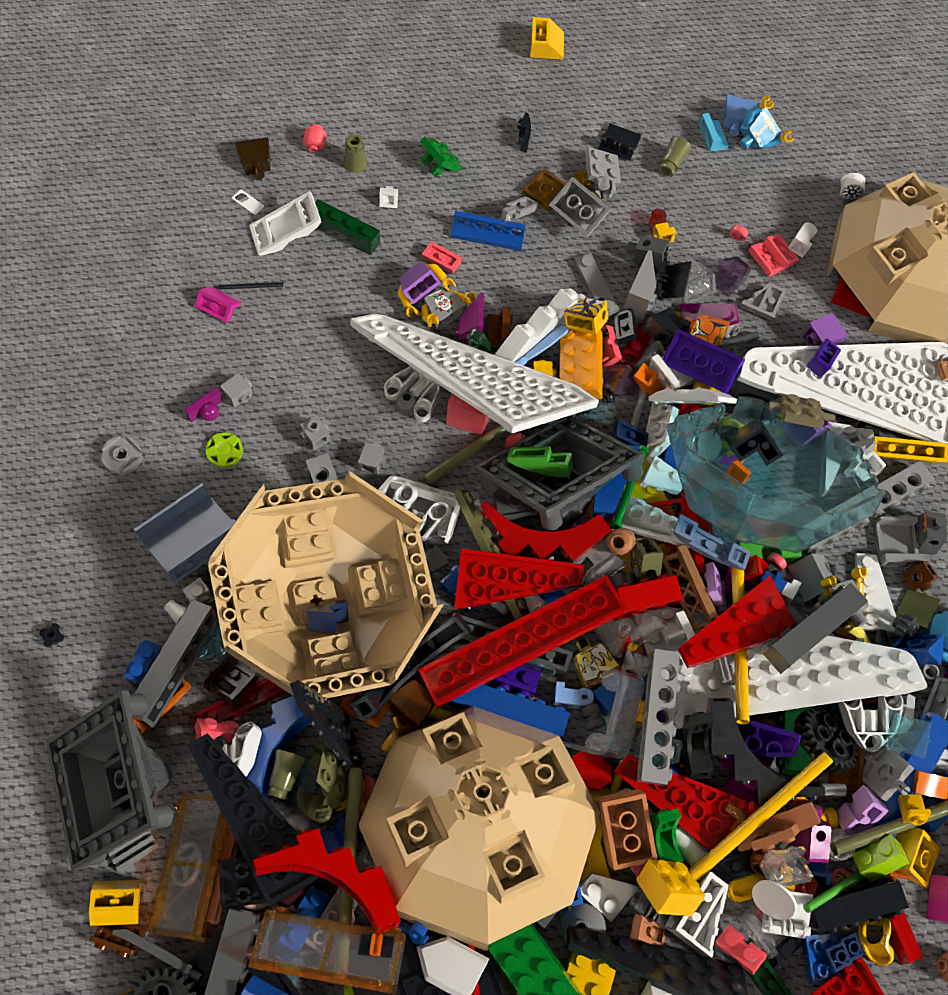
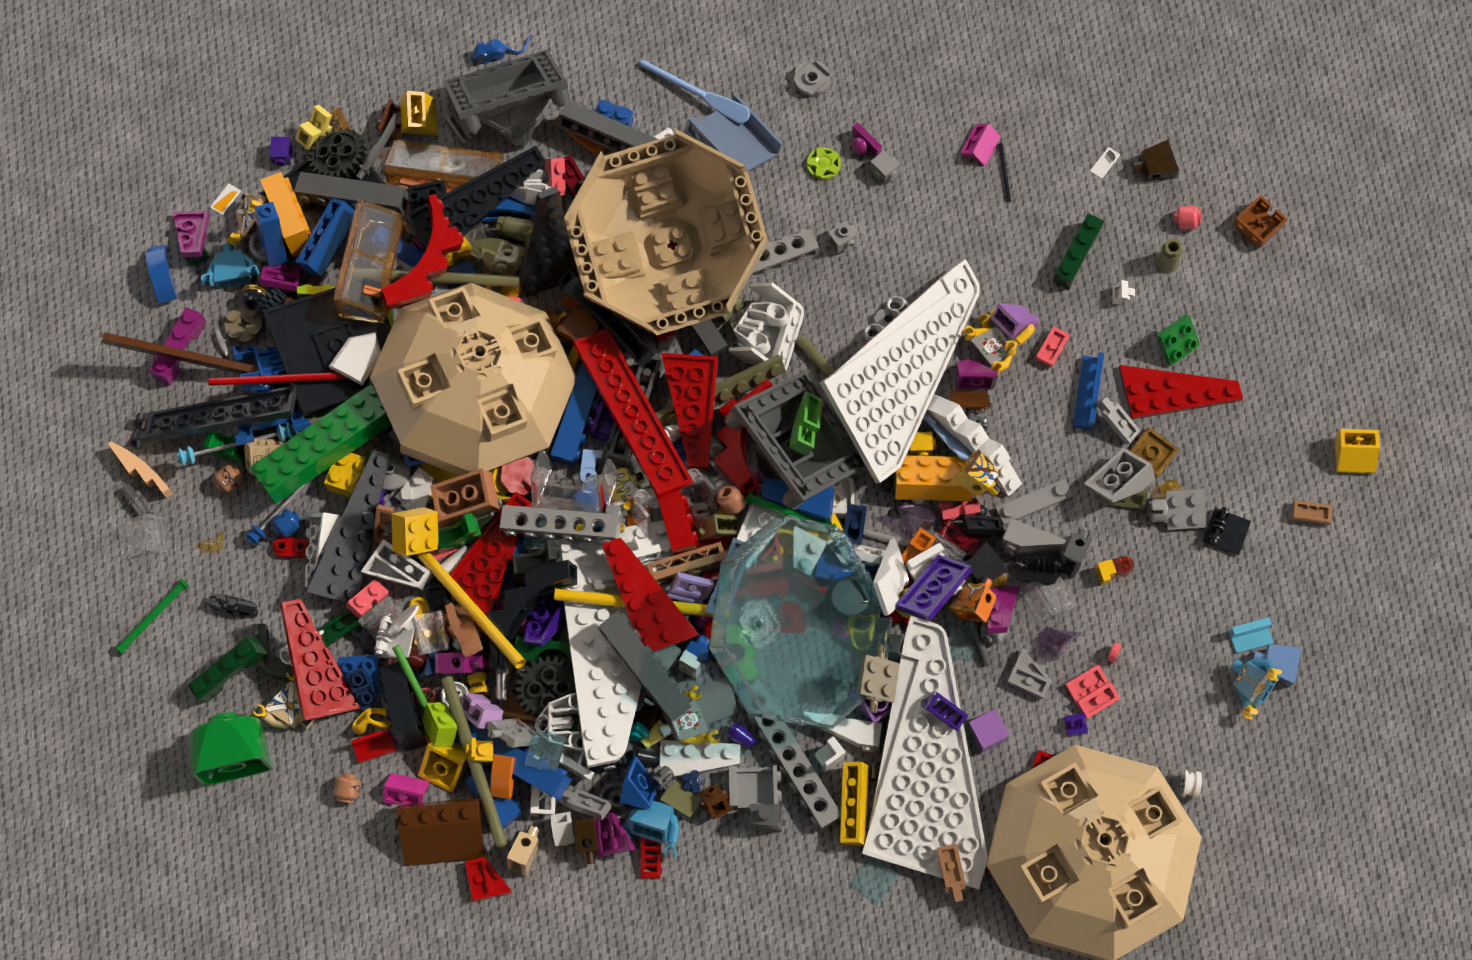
camera: 95 degrees right, 5 degrees up
(35, 809) = (493, 50): none -> blue animal
(57, 637) = (640, 48): black plate -> none
(148, 540) = (726, 106): none -> light blue piece
(285, 224) = (1072, 194): white slope -> none
(325, 77) = (1258, 211): none -> dark orange piece
(327, 616) = (656, 252): dark blue slope -> none
(371, 458) = (819, 288): light grey brick -> none
(415, 931) = (387, 327): blue bar -> none
(479, 341) = (948, 374): clear green plate -> none
(487, 174) = (1164, 392): none -> red wing
(524, 132) = (1230, 428): black slope -> none
(601, 79) = (1311, 512): none -> medium nougat plate
(675, 154) = (1208, 586): olive plant -> none
(736, 813) = (478, 597): clear yellow animal -> none
(739, 471) = (816, 624): orange panel -> none
(754, 438) = (845, 633): black brick -> none
(801, 241) = (1118, 723): white leg -> none
(805, 269) = (1076, 724): none -> dark purple tile
(847, 554) = (740, 735): none -> dark purple cone
(861, 437) = (850, 729): light grey plate -> none
(900, 598) = (692, 781): none -> dark blue plant

